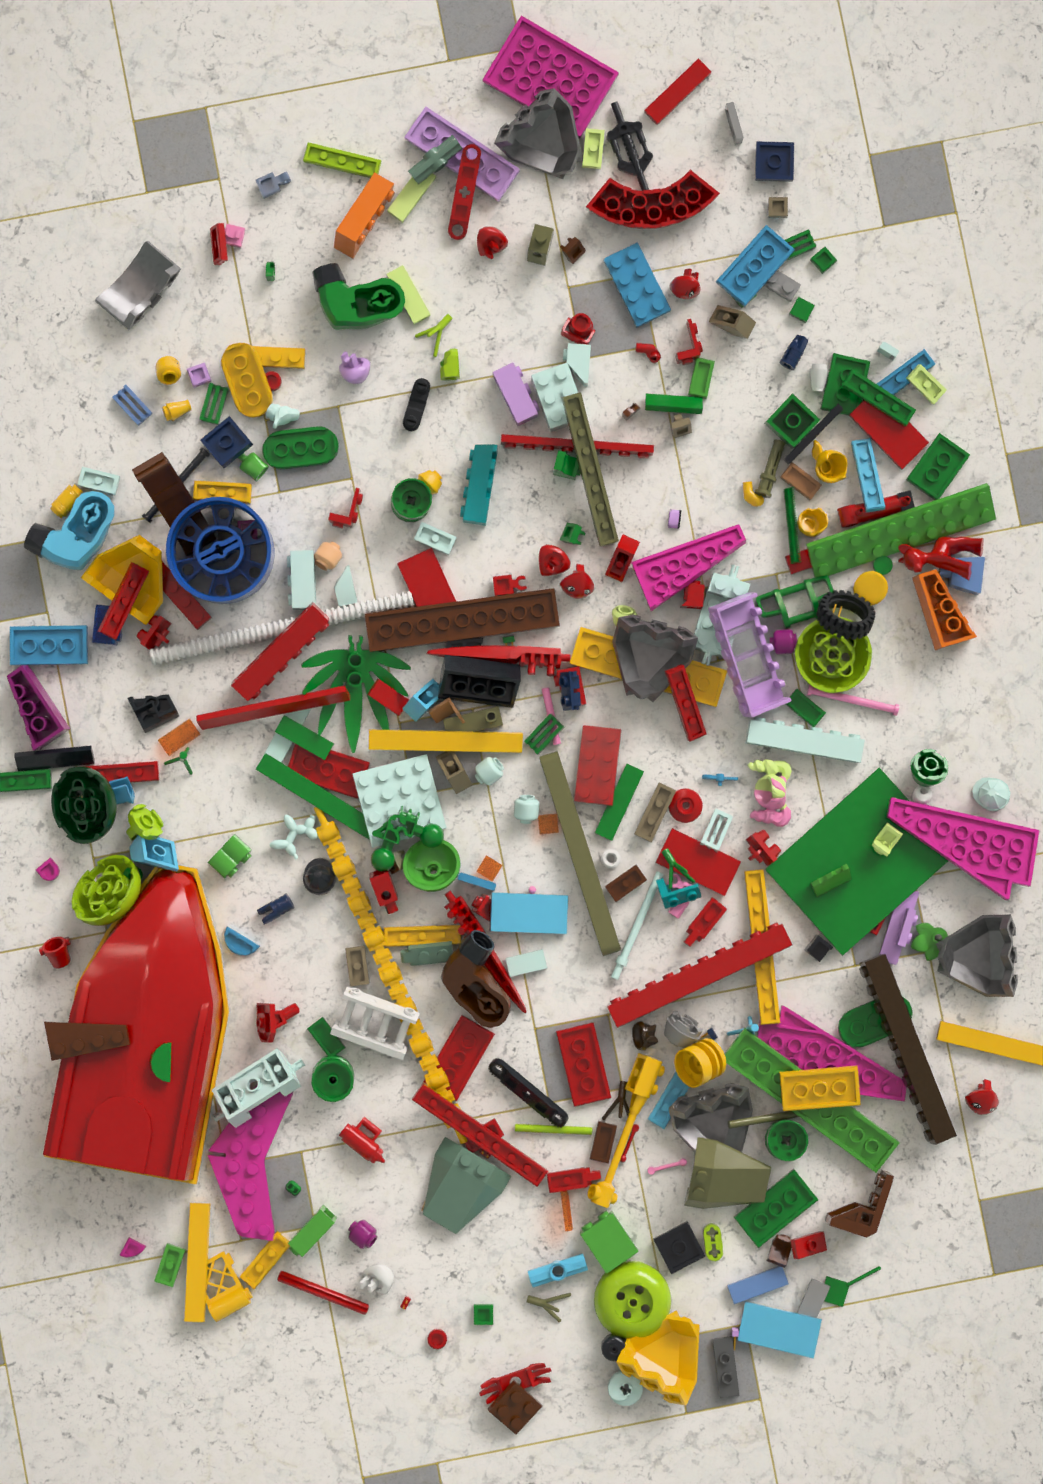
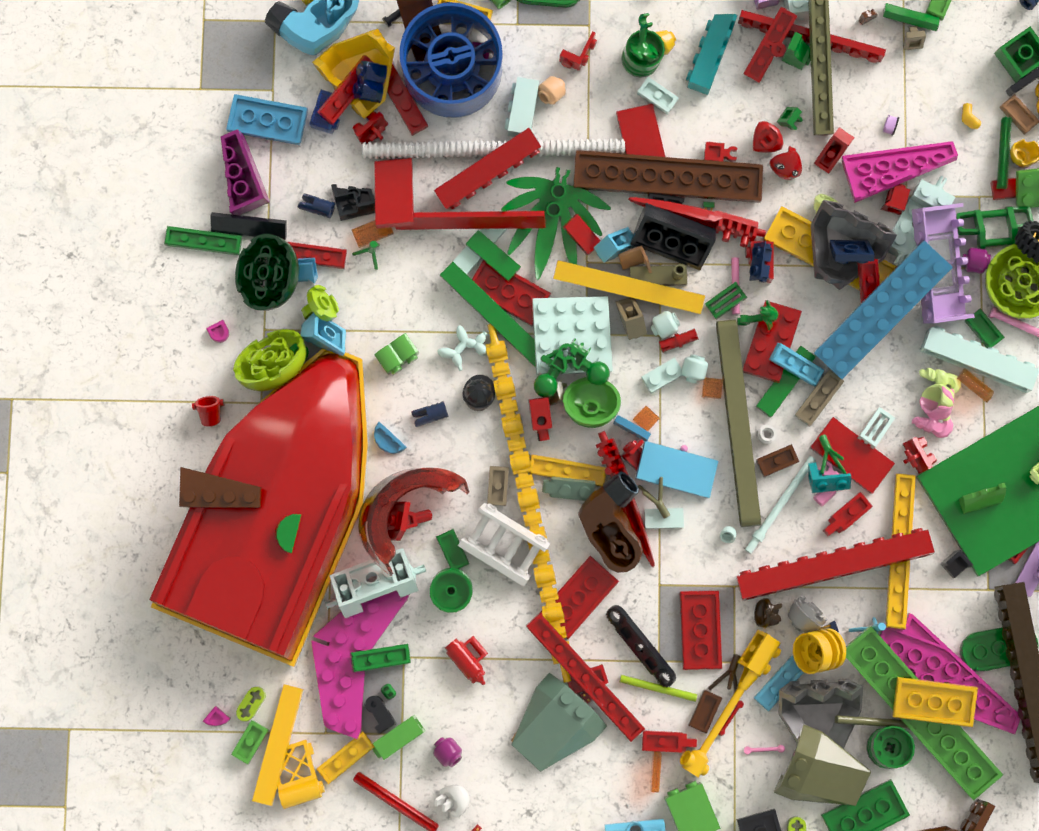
camera: 15 degrees right, 5 degrees down
(121, 723) = (317, 206): none -> dark blue hinge
(144, 589) = (369, 81): none -> clear blue brick
(166, 1230) = (247, 701): none -> lime beam
(192, 695) = (394, 193): none -> red tile
(248, 1001) = (382, 498): none -> clear red windscreen
(278, 1158) = (380, 657): none -> green tile
(286, 1206) = (381, 713): none -> black leg
(345, 588) = (562, 124): light aqua slope -> none
(409, 499) = (642, 49): none -> green piece
(496, 821) = (662, 375): none -> light aqua plate
(505, 783) = (678, 340): none -> red pin
(517, 950) = (659, 504): none -> olive plant
(537, 465) = (770, 45): none -> red hinge
(587, 742) = (768, 315): none -> green piece
(592, 966) = (728, 534): none -> light aqua hinge
(625, 785) = (796, 364): none -> medium azure tile
(656, 662) = (851, 250): none -> dark blue plate
(695, 805) = (848, 407): red piece -> none
(698, 715) = (883, 309): none -> dark azure brick
(719, 777) = (888, 378): dark azure piece -> none
(768, 477) = (989, 103): olive pin -> none
(805, 767) = (975, 385): none -> clear orange tile

